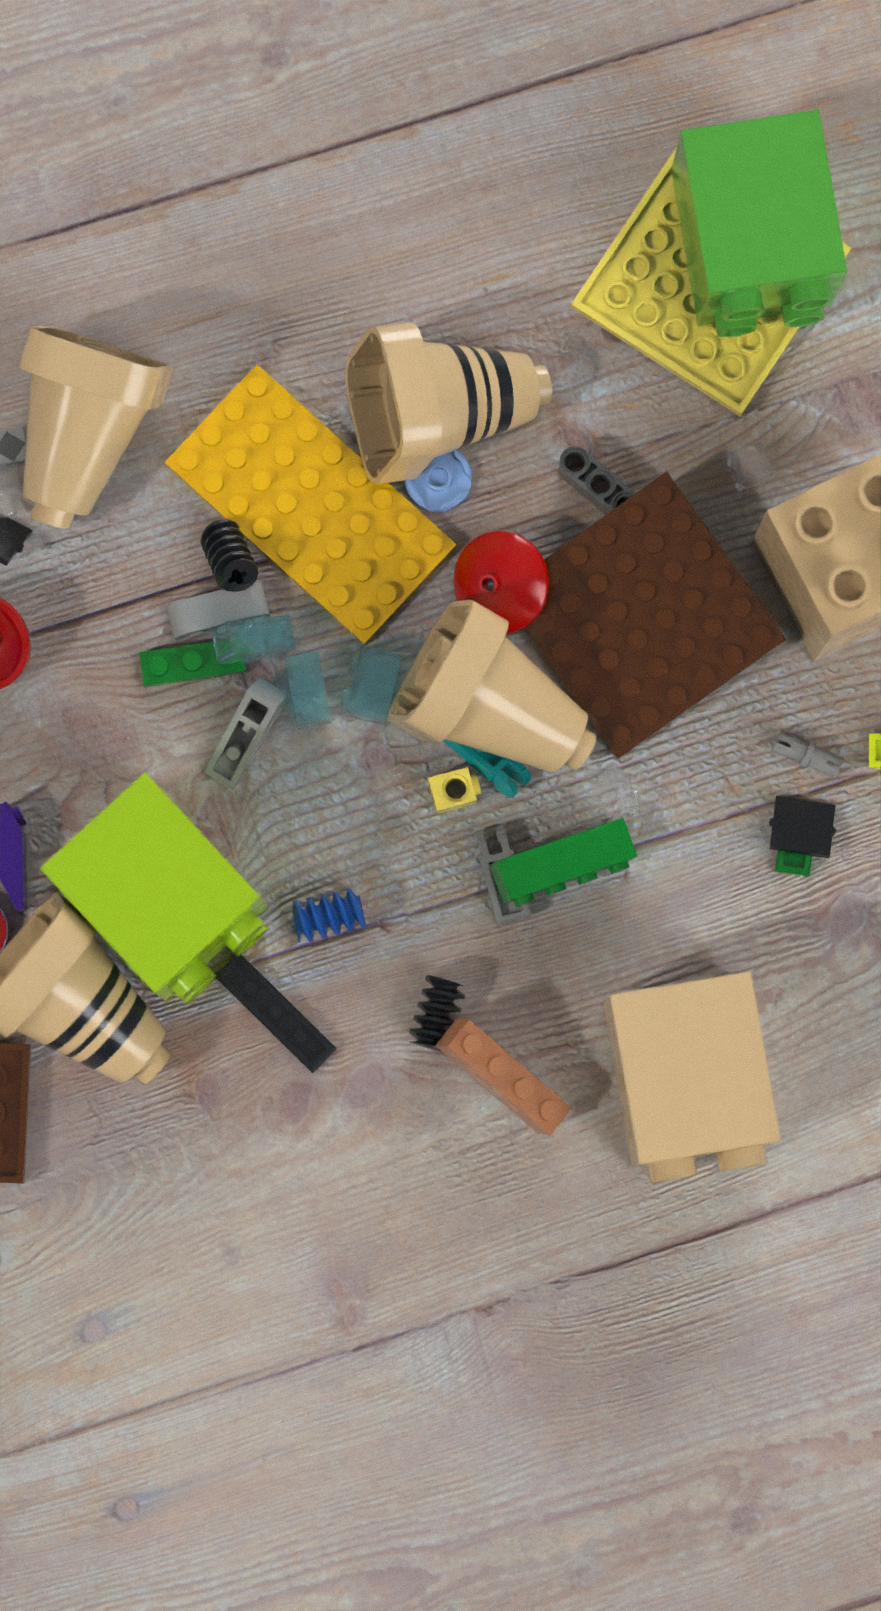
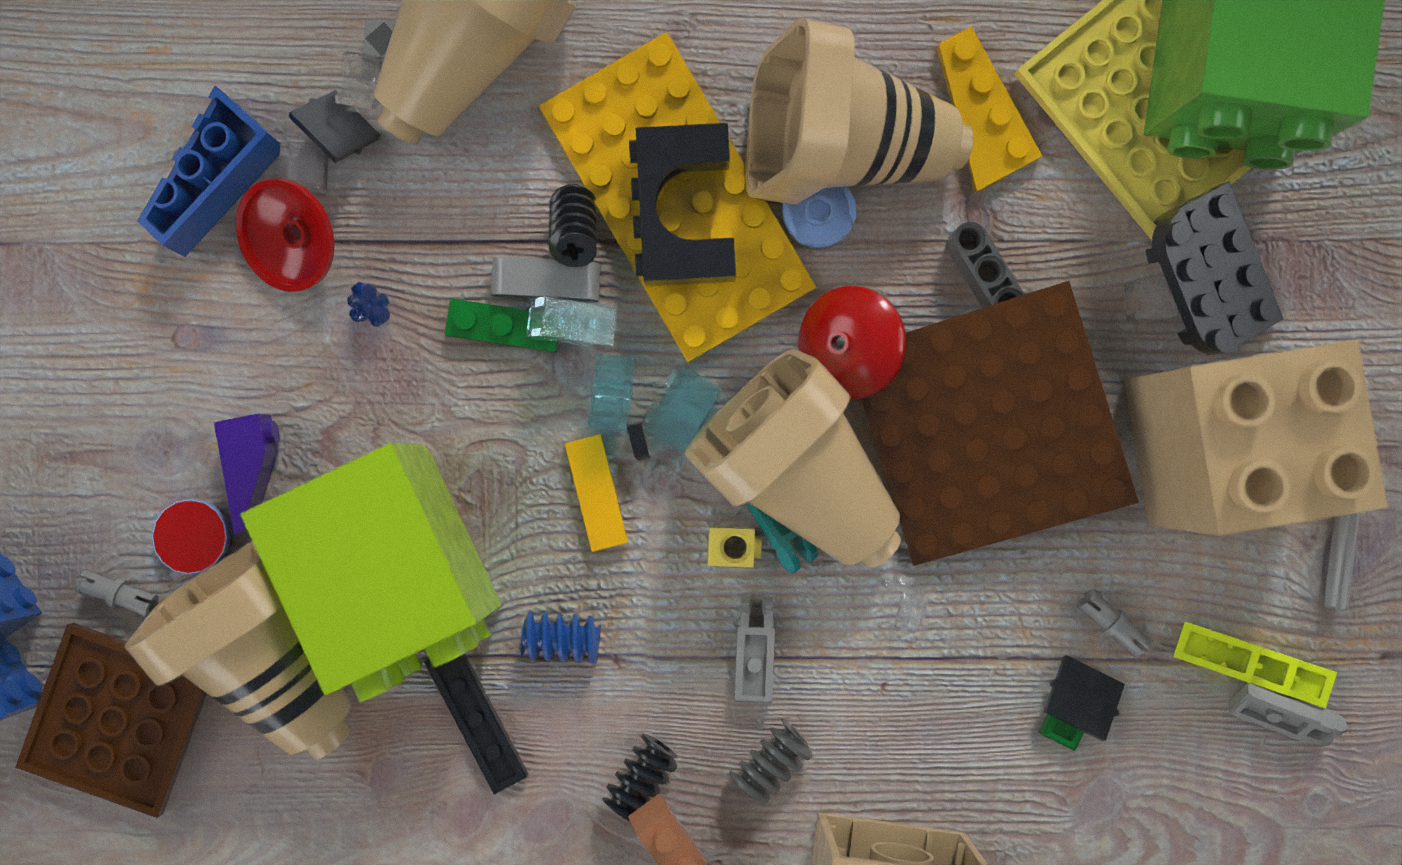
camera: 20 degrees right, 5 degrees up
(68, 680) = (367, 305): none -> clear blue plant
(246, 732) = (535, 416): light grey slope -> none
(316, 556) = (660, 156): none -> black arch
(320, 782) = (596, 492): none -> yellow tile
(343, 724) = (639, 440): none -> black tile
(547, 966) = (772, 763): none -> dark grey piece
(564, 861) = (824, 661): green brick -> none
(572, 363) = (999, 133): none -> yellow wing
(792, 424) = (1214, 272): none -> black plate

